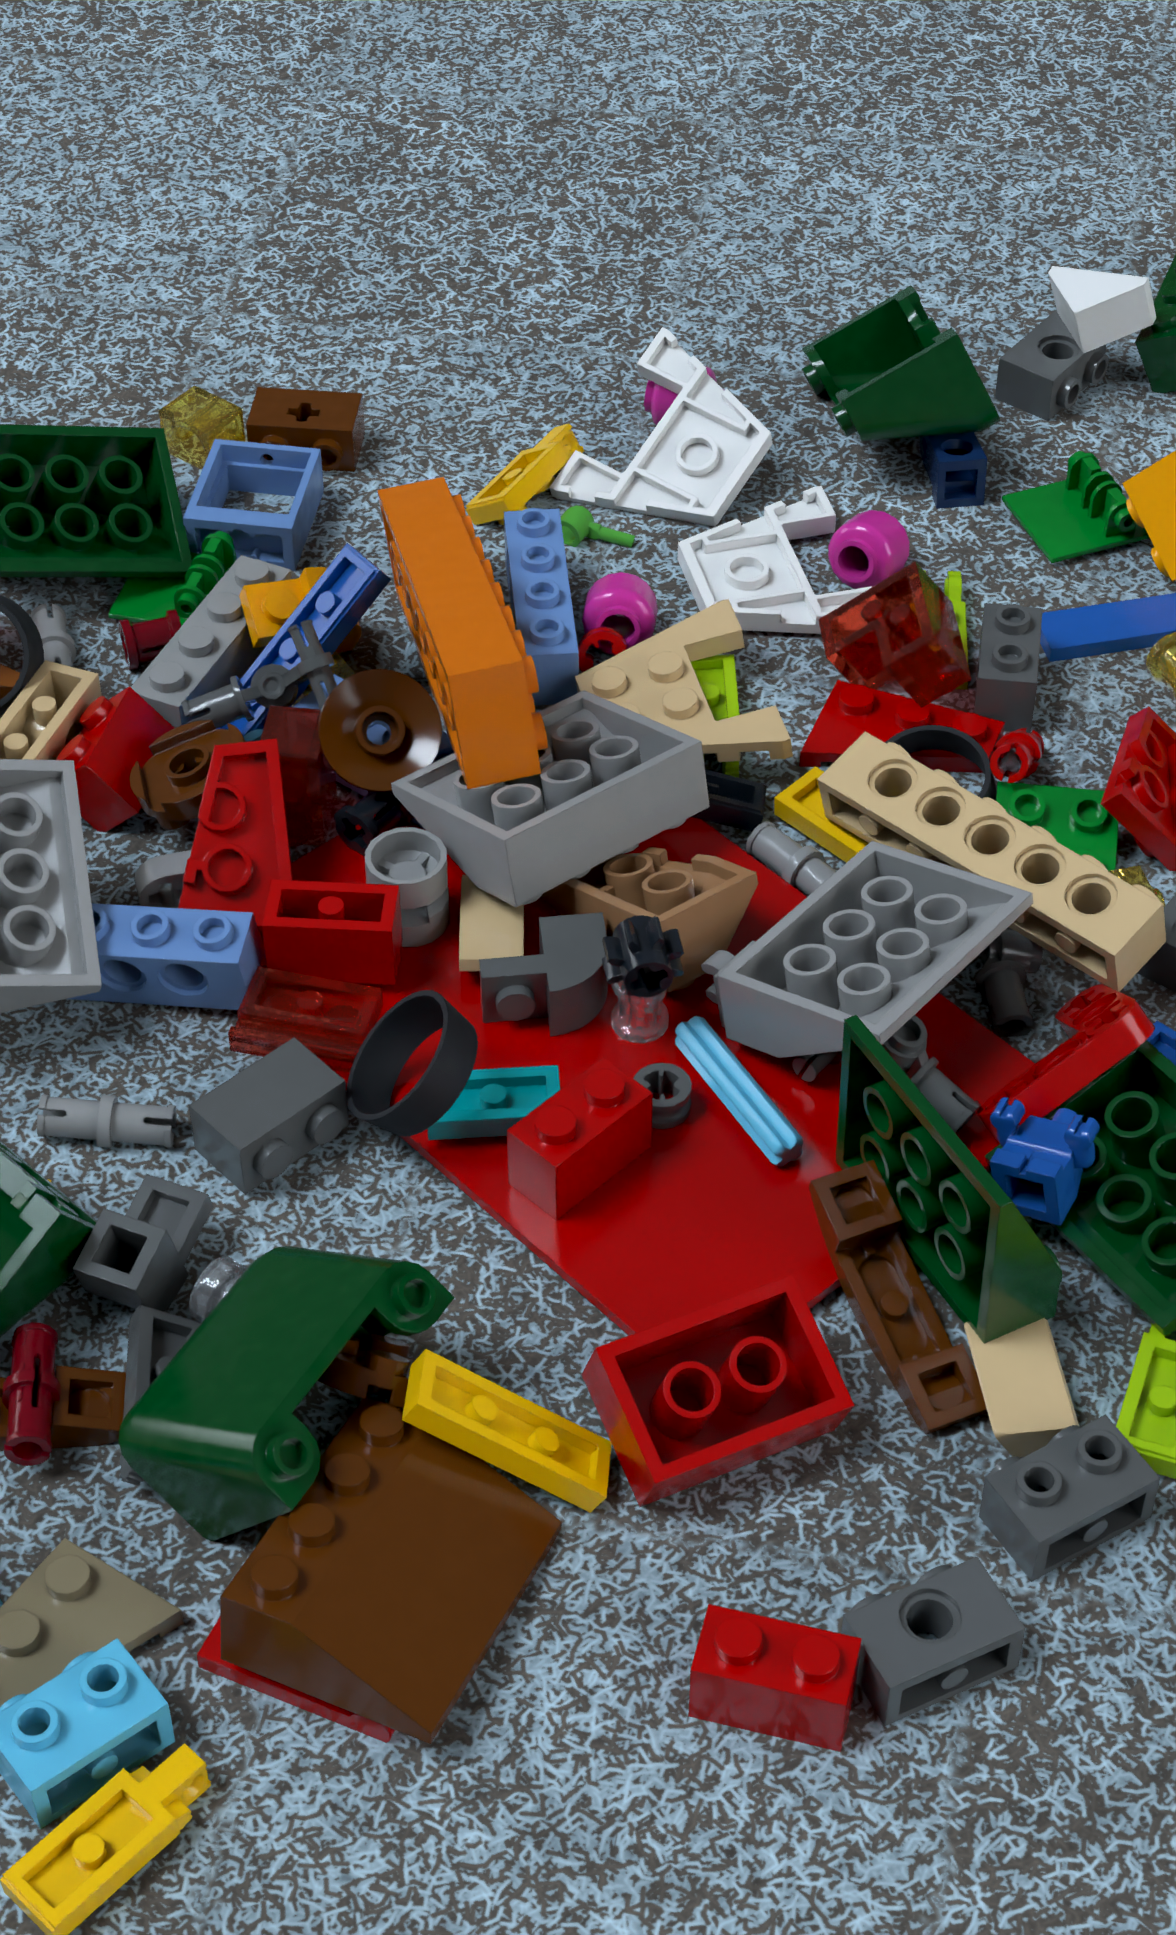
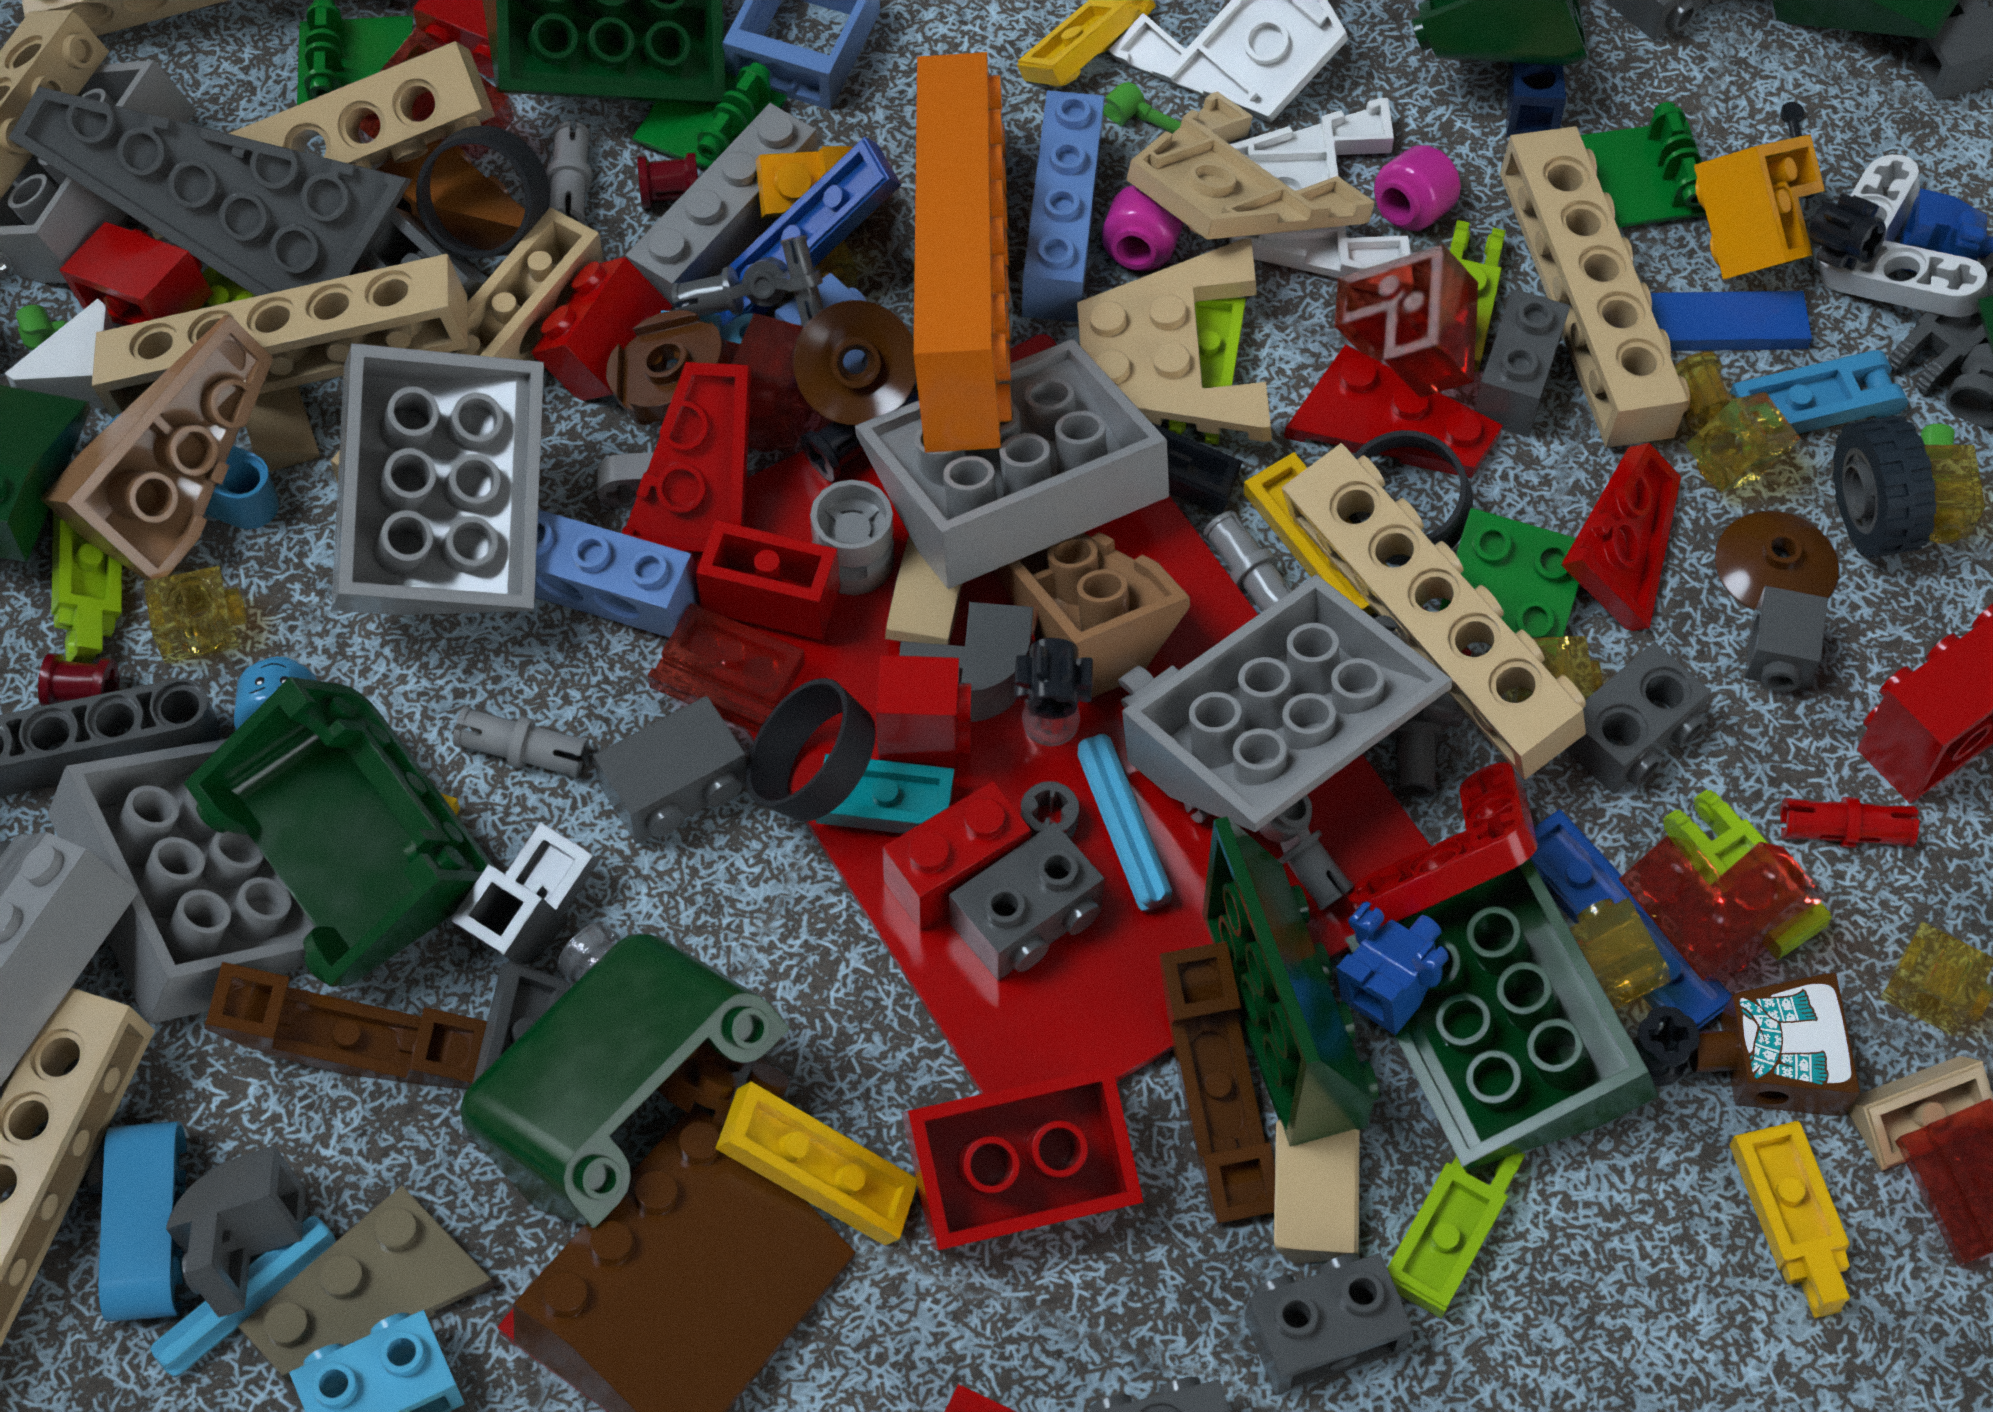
camera: 10 degrees right, 15 degrees up
(31, 1394) = (387, 1072): dark red pin -> none
(517, 1008) = (922, 711): none -> red brick
(593, 636) = (1105, 257): red bush -> none
(660, 1168) = (1027, 902): none -> dark grey brick
(674, 558) = (1225, 191): none -> tan wing
(1006, 761) = (1500, 476): red pin -> none
(1082, 625) = (1588, 265): none -> tan brick

